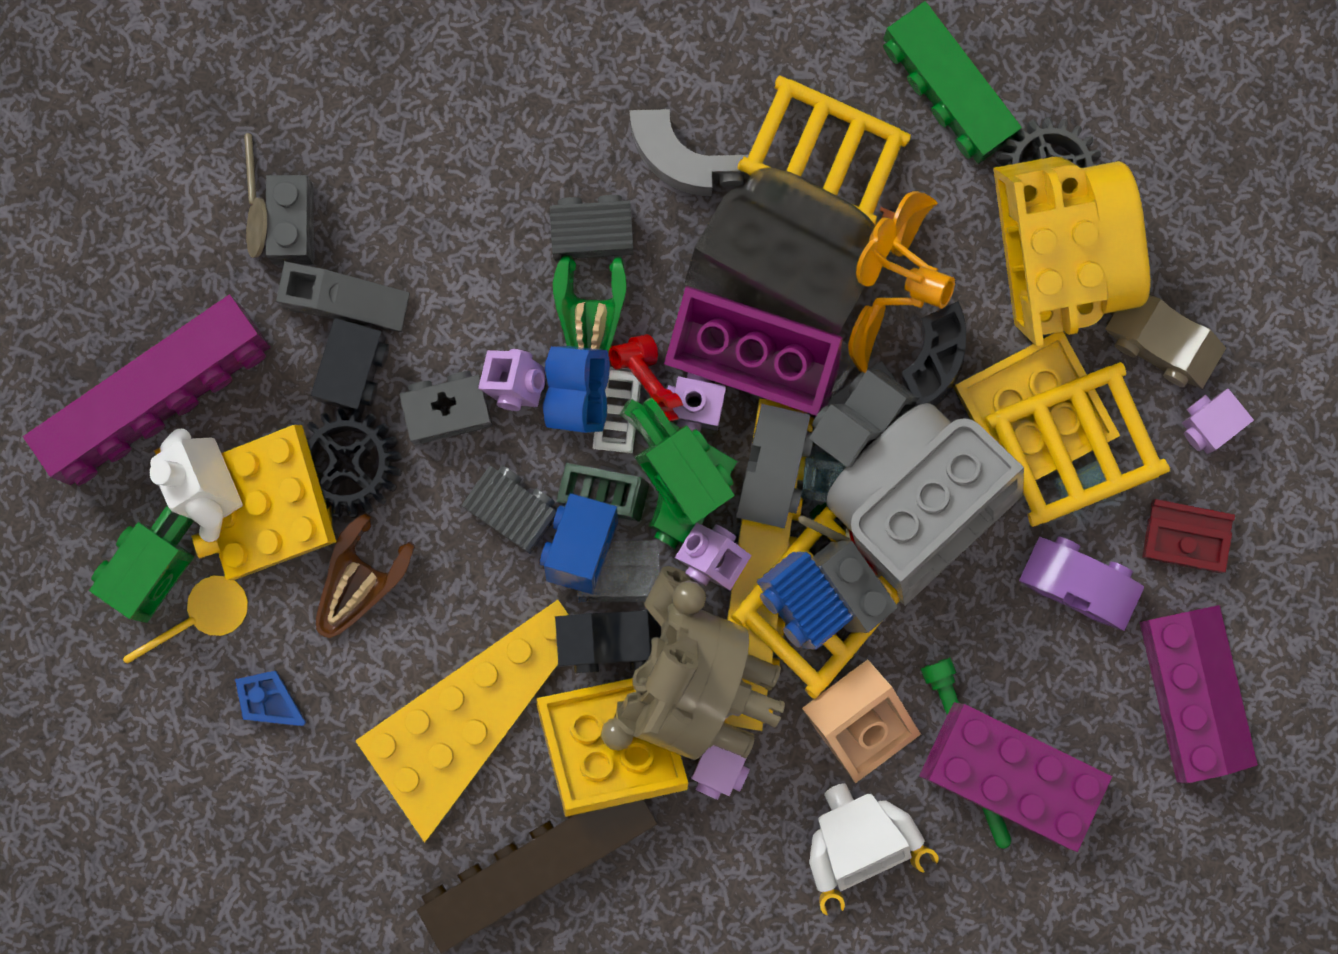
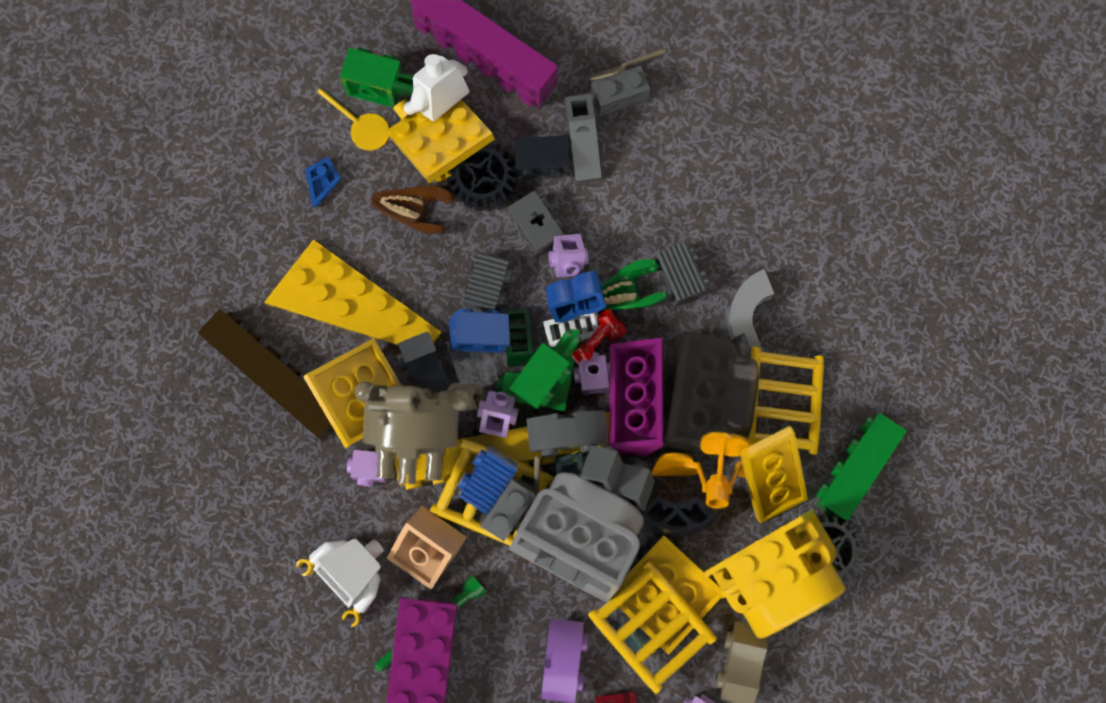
camera: 70 degrees right, 5 degrees down
(930, 201) = (774, 474): none -> yellow tile

